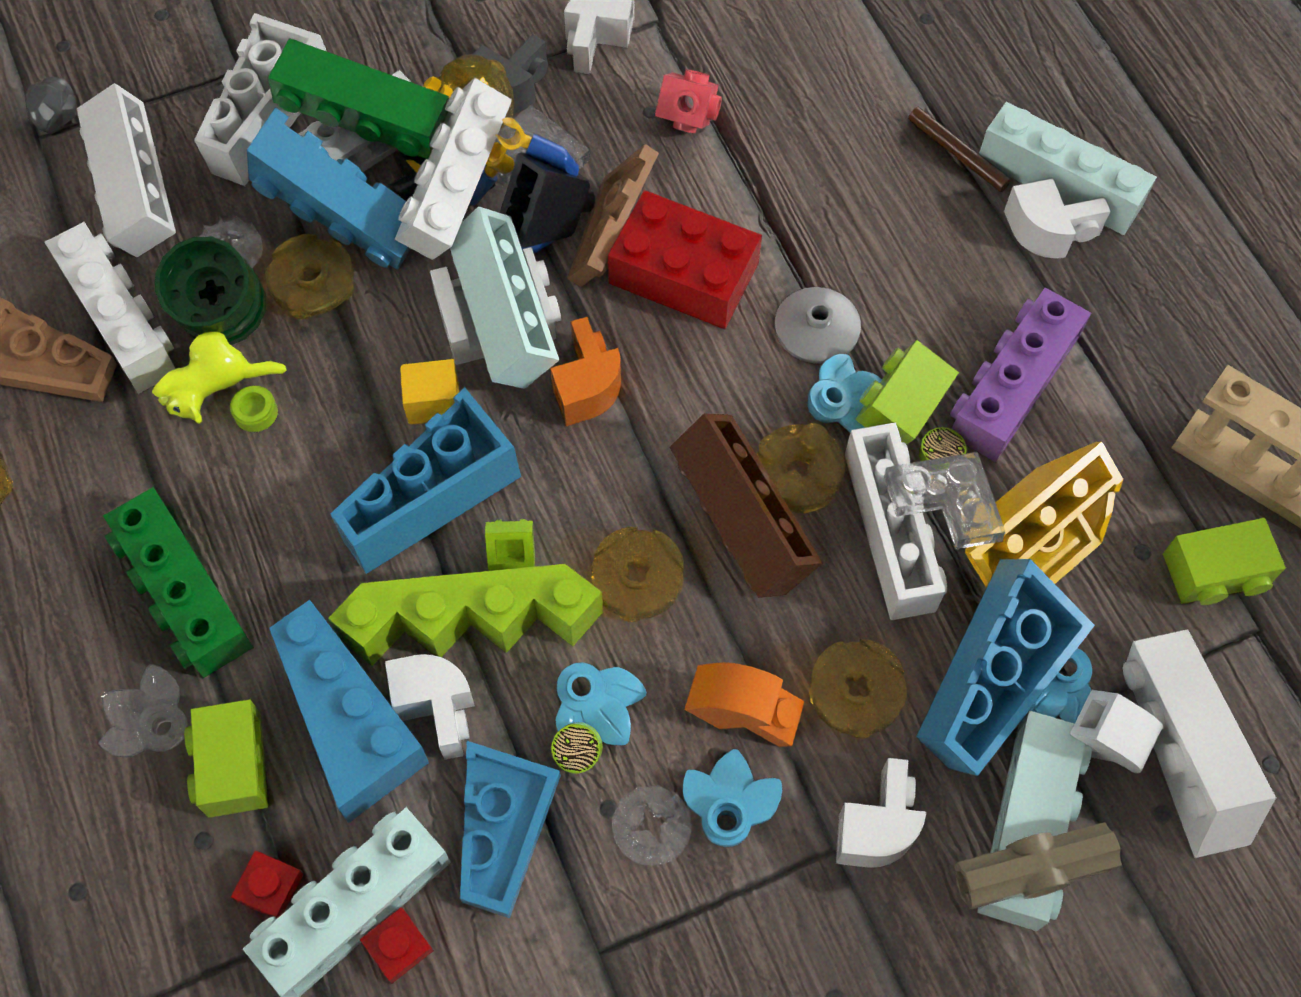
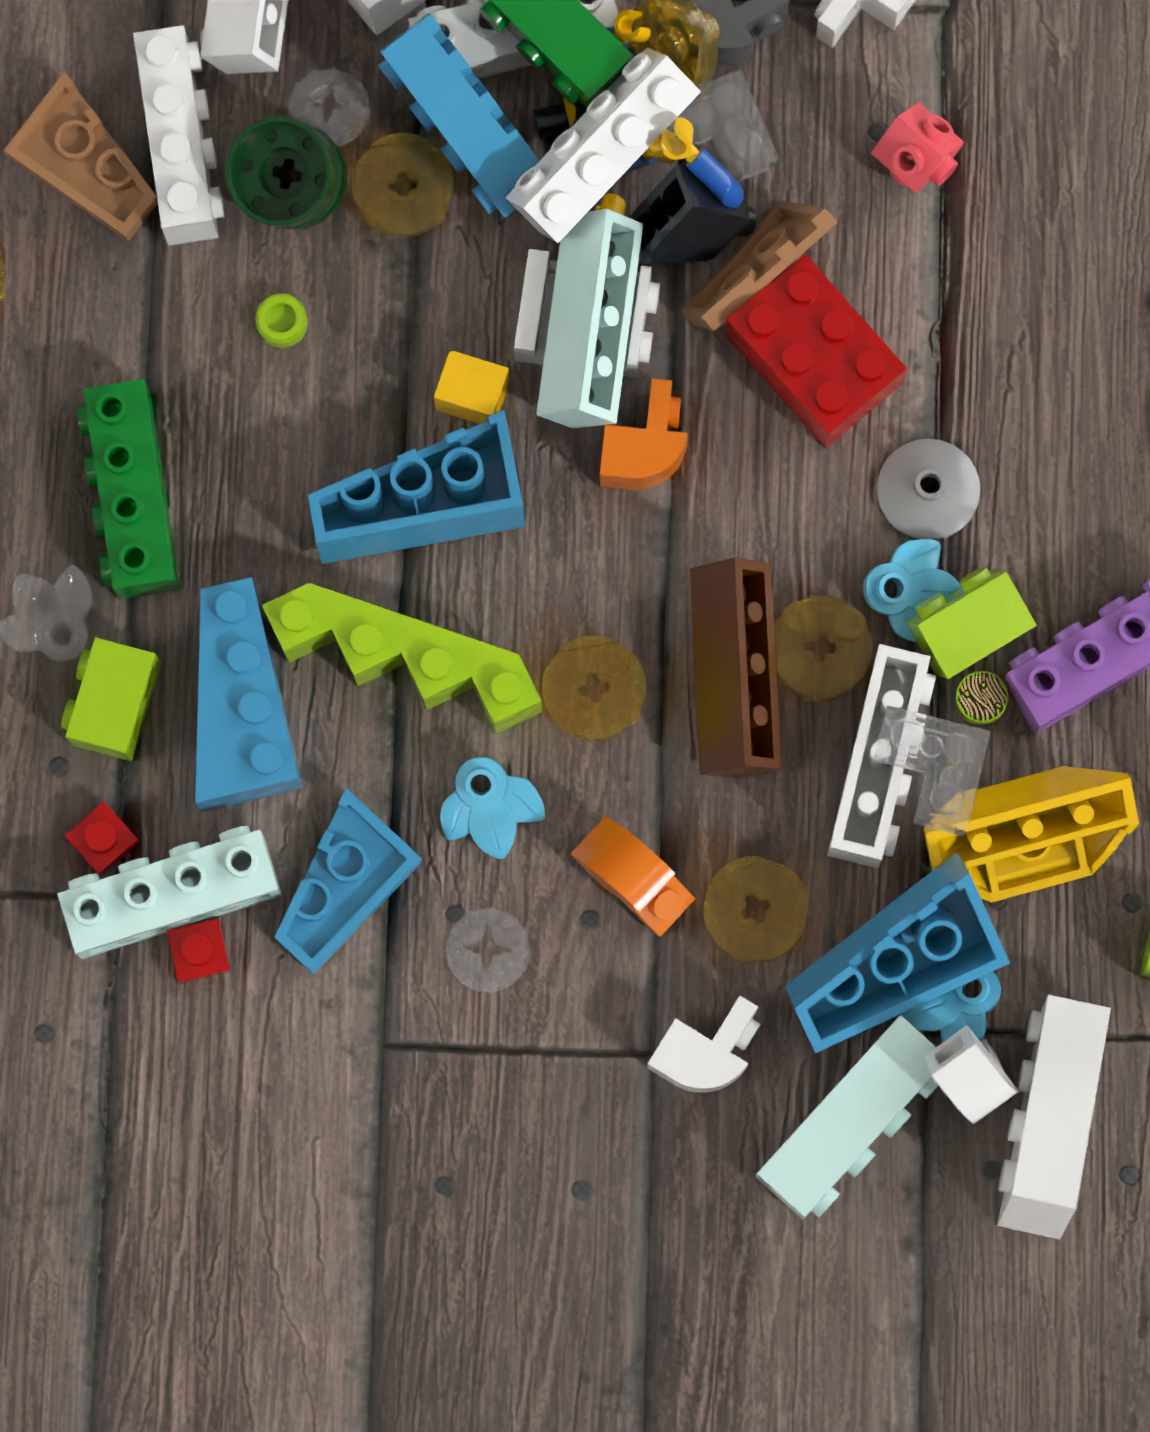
camera: 30 degrees right, 15 degrees up
(211, 368) = (254, 260): neon yellow animal -> none
(435, 687) = (335, 715): white brick -> none
(509, 544) = (478, 600): lime tile -> none
(576, 747) = (450, 842): tile -> none
(732, 793) = (581, 954): medium azure plate -> none
(1037, 865) = (817, 1163): dark tan piece -> none

